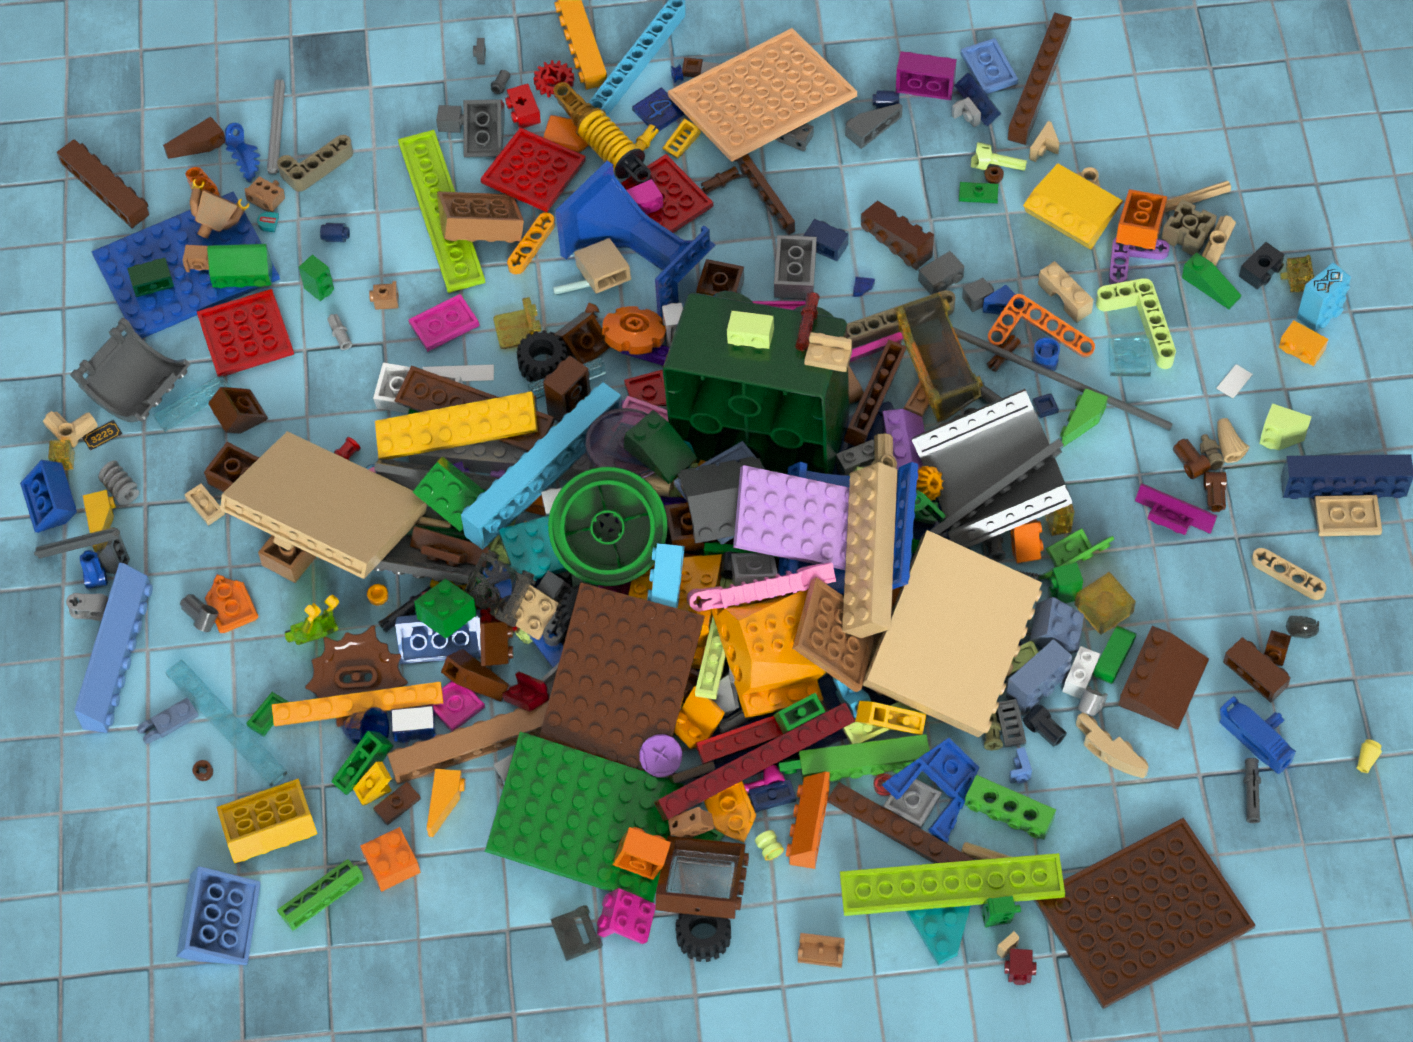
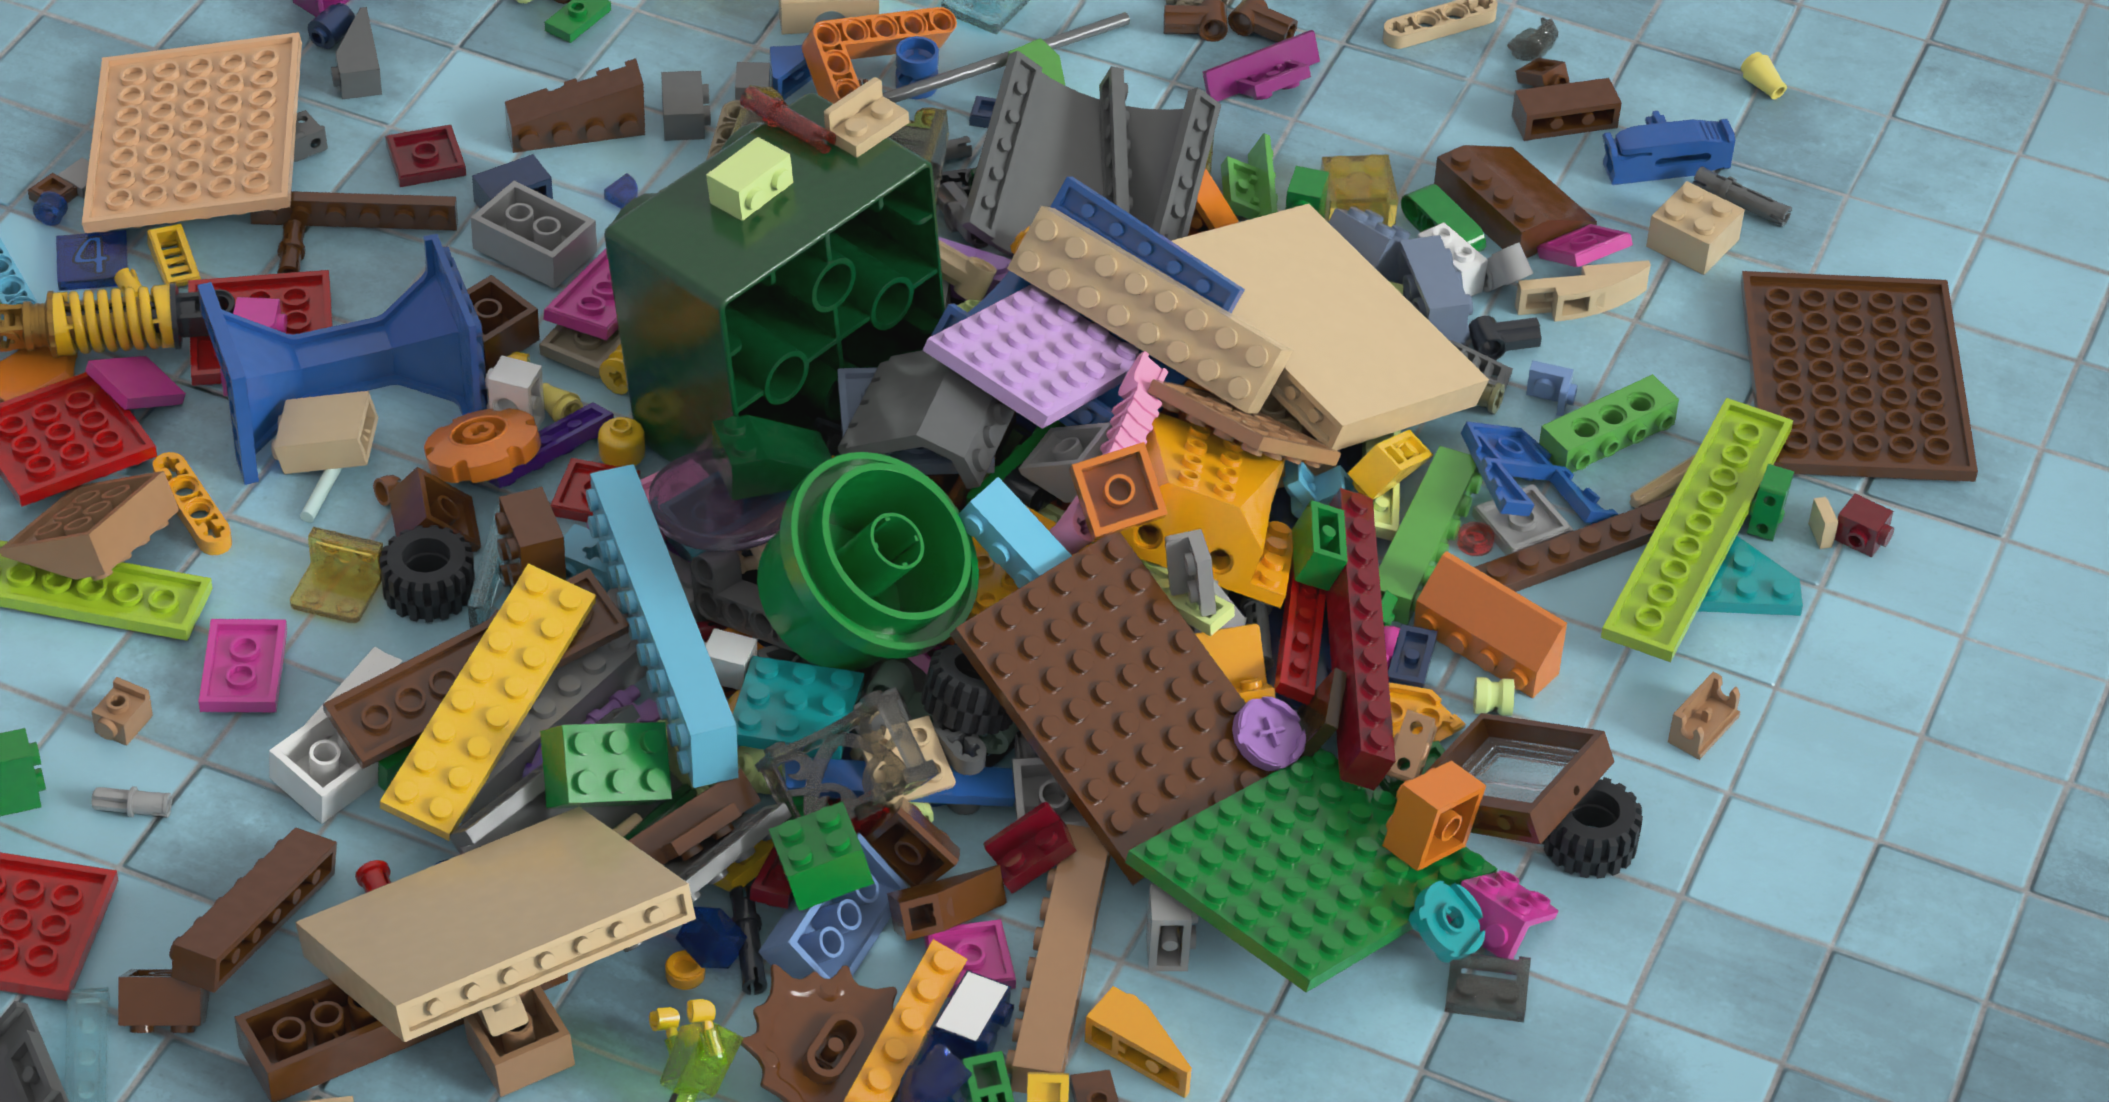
camera: 65 degrees left, 15 degrees down
(291, 412) = (253, 910): none -> reddish brown brick
(393, 593) = (711, 938): none -> clear blue brick
(578, 884) = (1429, 919): none -> teal plate
(579, 170) = (135, 382): none -> dark pink tile
(710, 665) = (1191, 569): none -> light grey bracket
(712, 602) = (1118, 491): none -> orange brick
(828, 192) = (425, 155): none -> dark red tile
(1143, 730) = (1584, 245): none -> dark pink tile
(1202, 778) = (1695, 228): none -> tan brick

